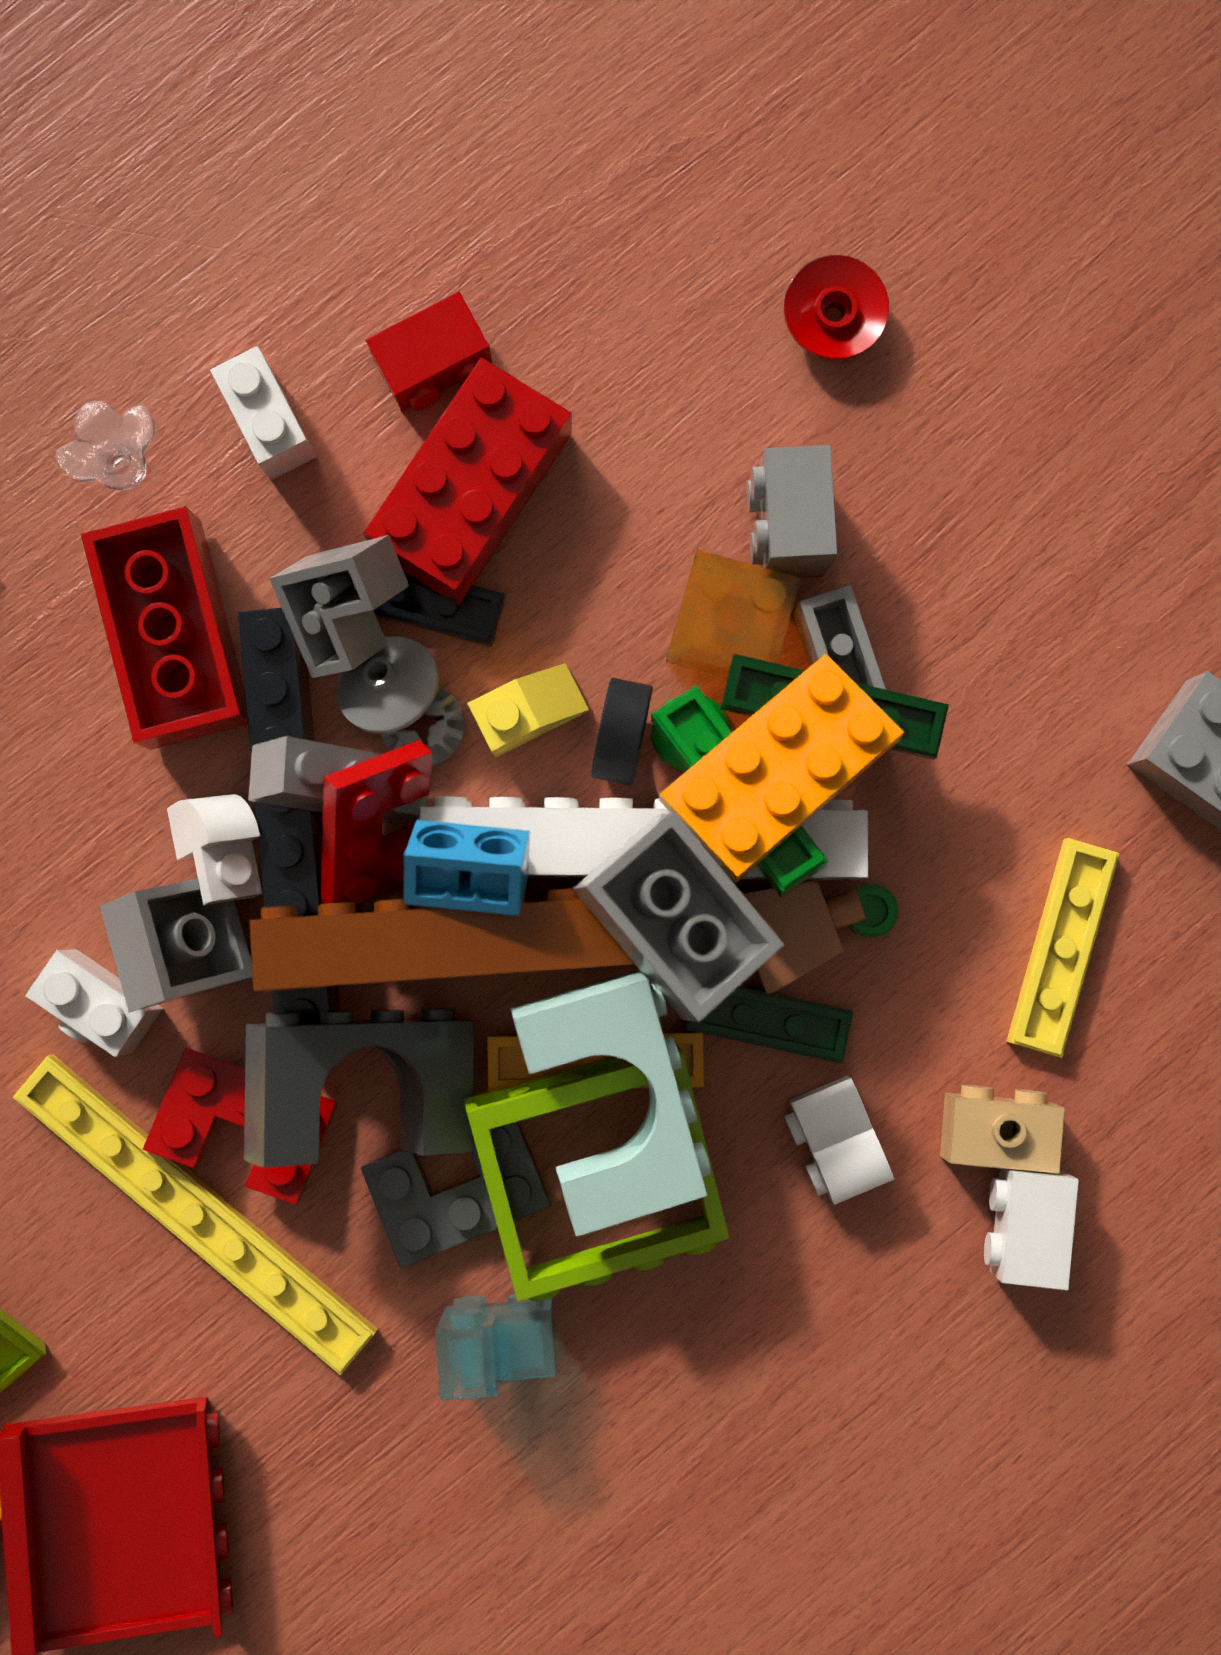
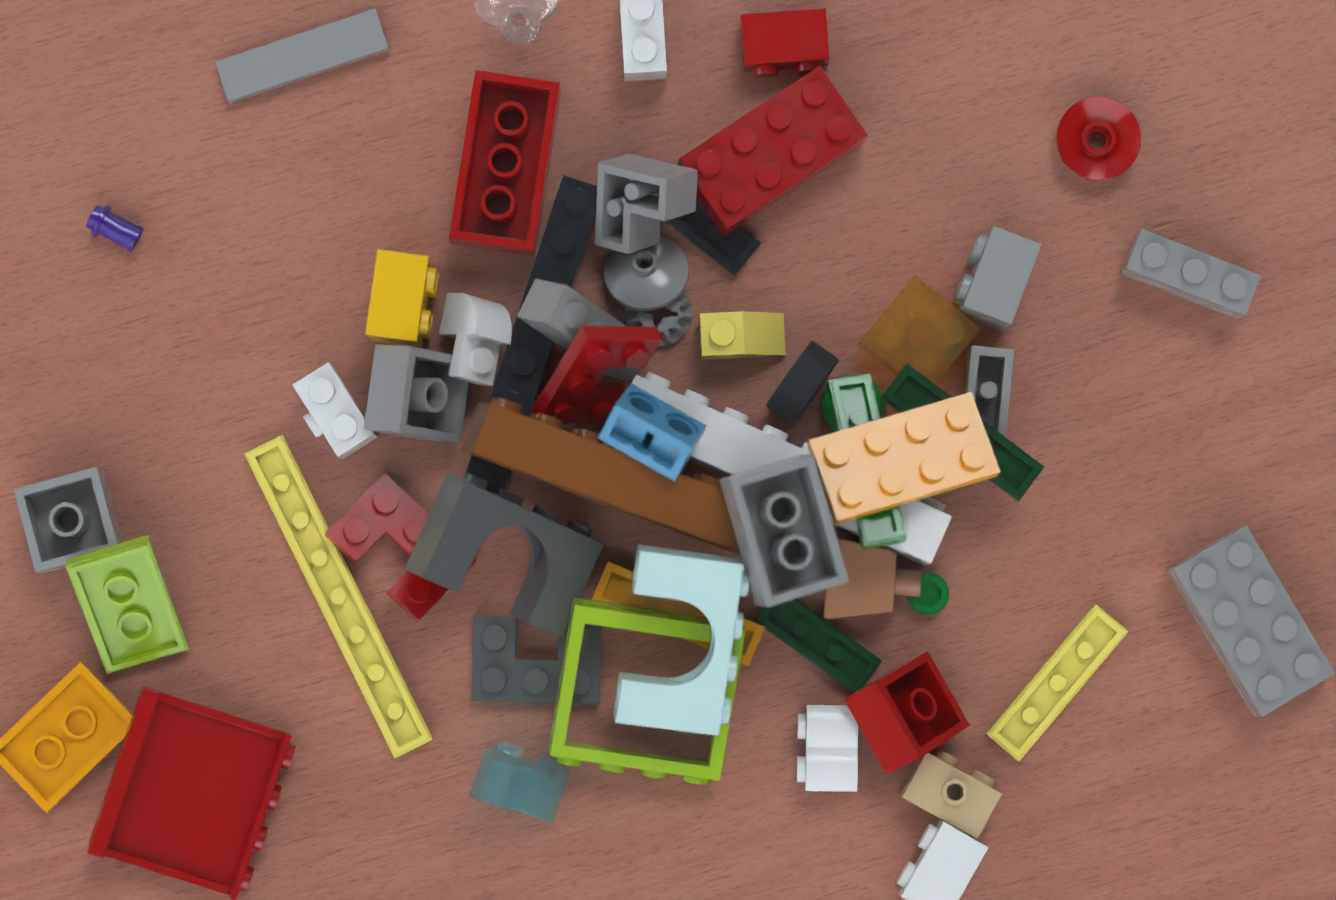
camera: 20 degrees right, 0 degrees up
(110, 838) = (401, 299): none -> yellow brick
(913, 1063) = (907, 712): none -> red brick
(1009, 414) = (1190, 274): none -> light grey brick

